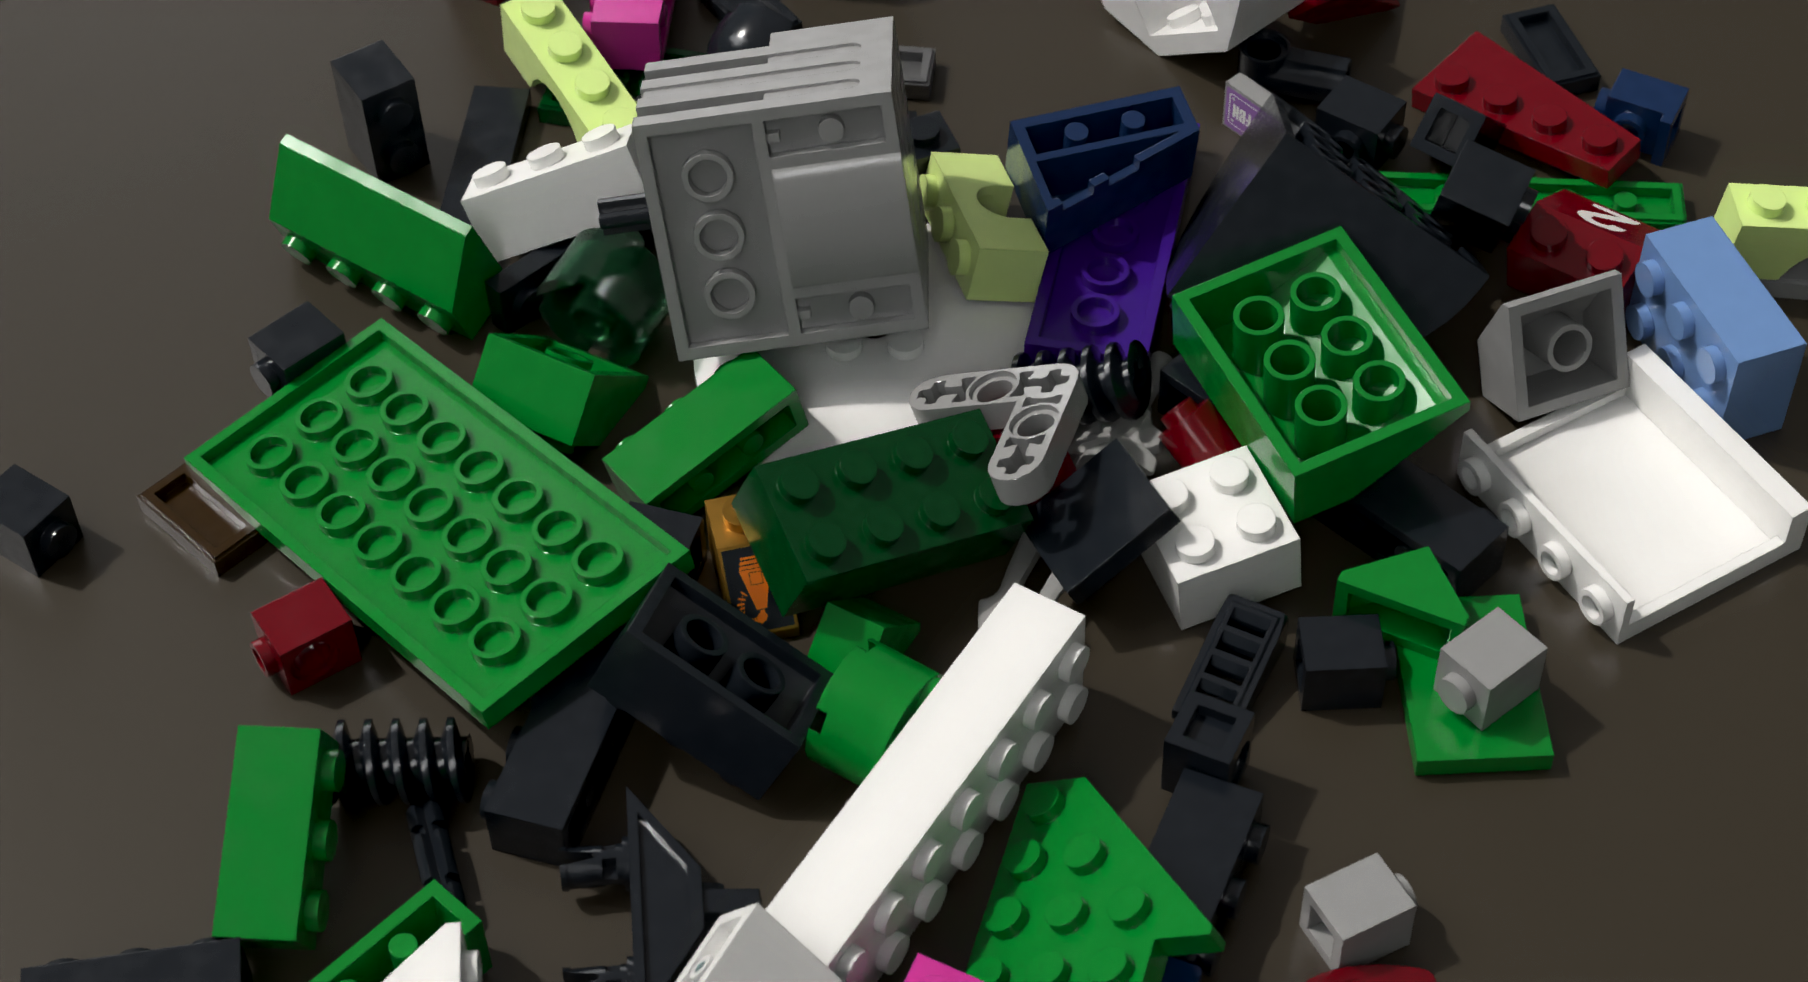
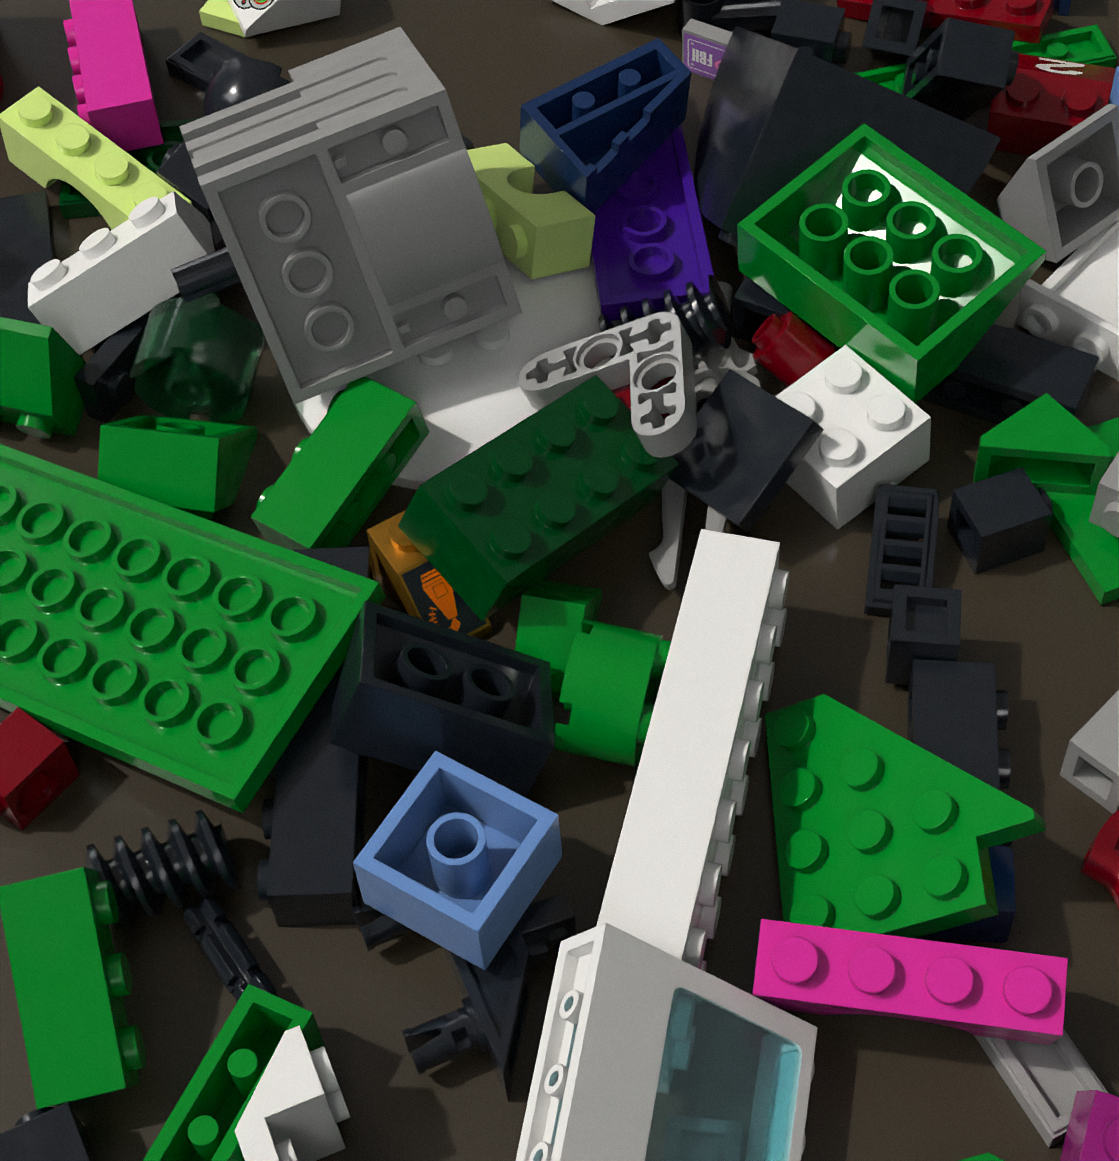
camera: 15 degrees left, 5 degrees up
(663, 822) = (459, 859): none -> medium blue brick

